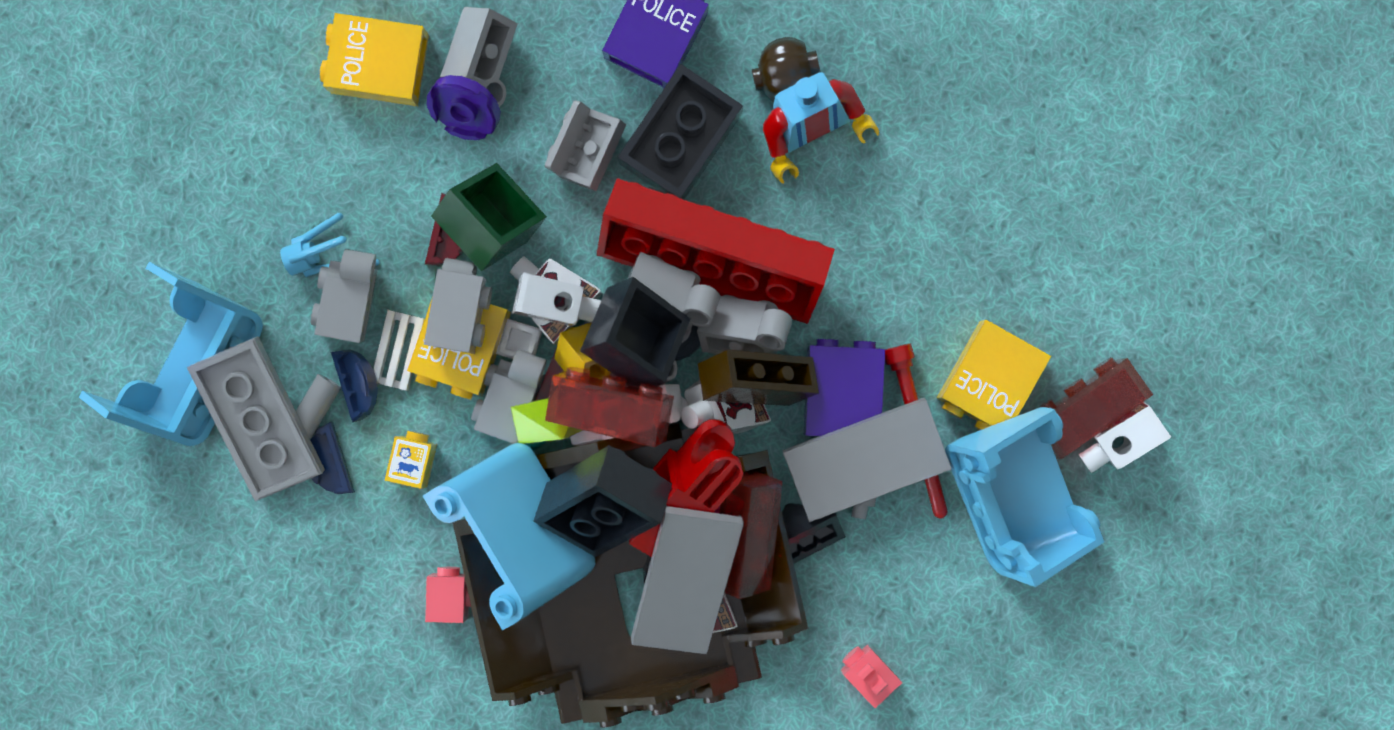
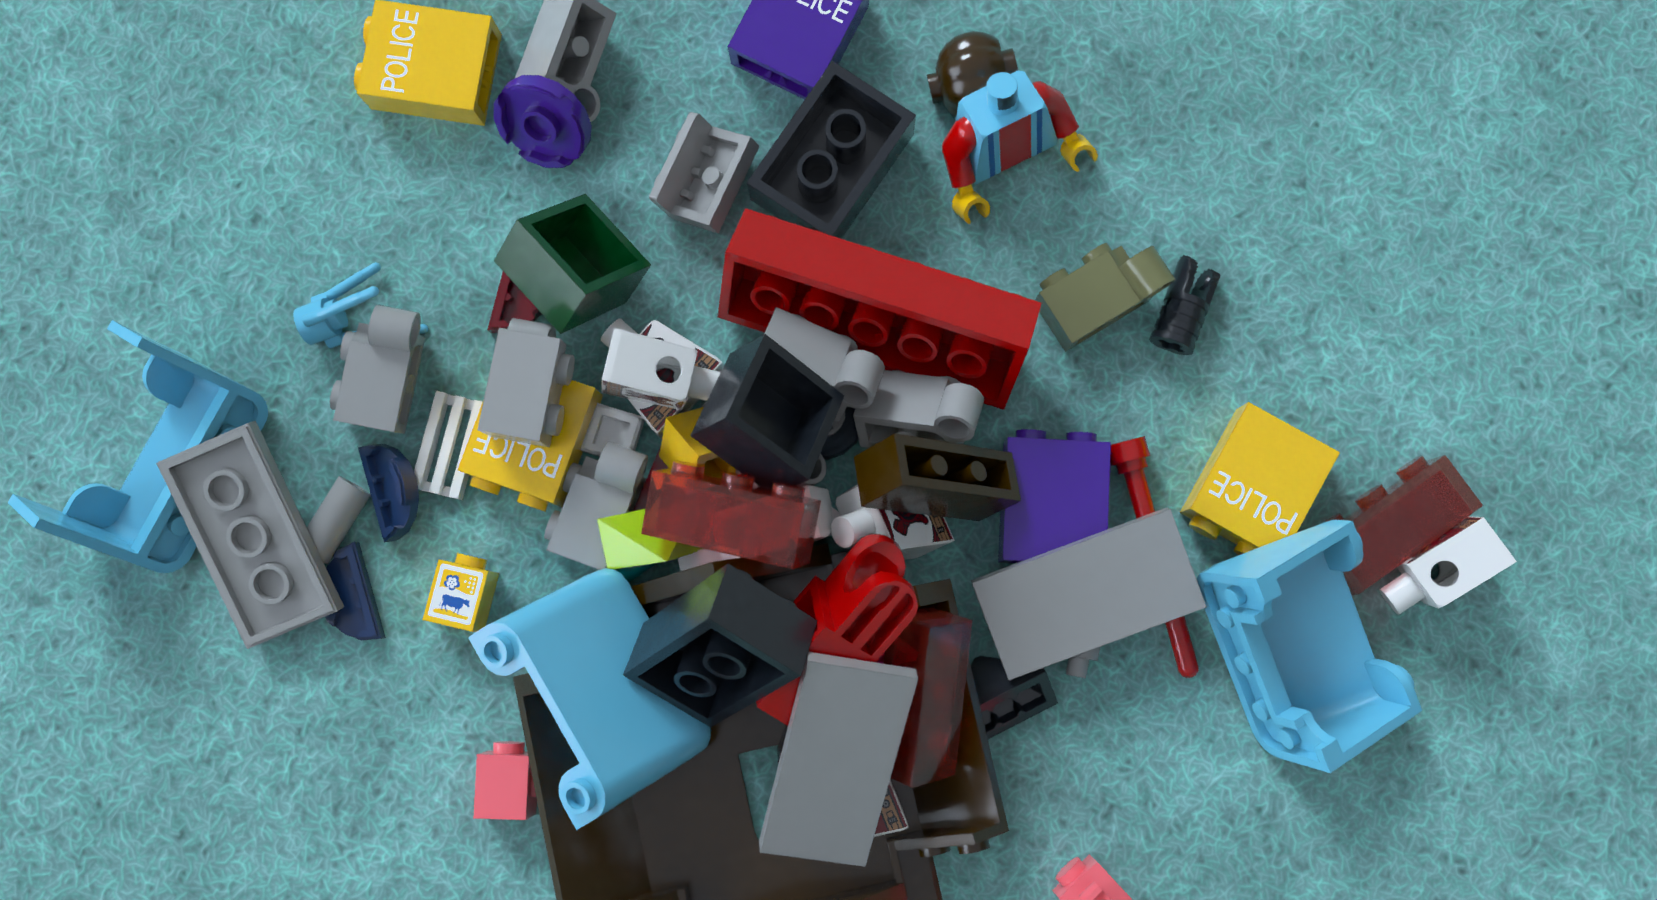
camera: 10 degrees right, 5 degrees down
(879, 235) = (1100, 292): none -> olive hinge
(942, 251) = (1184, 312): none -> black hinge

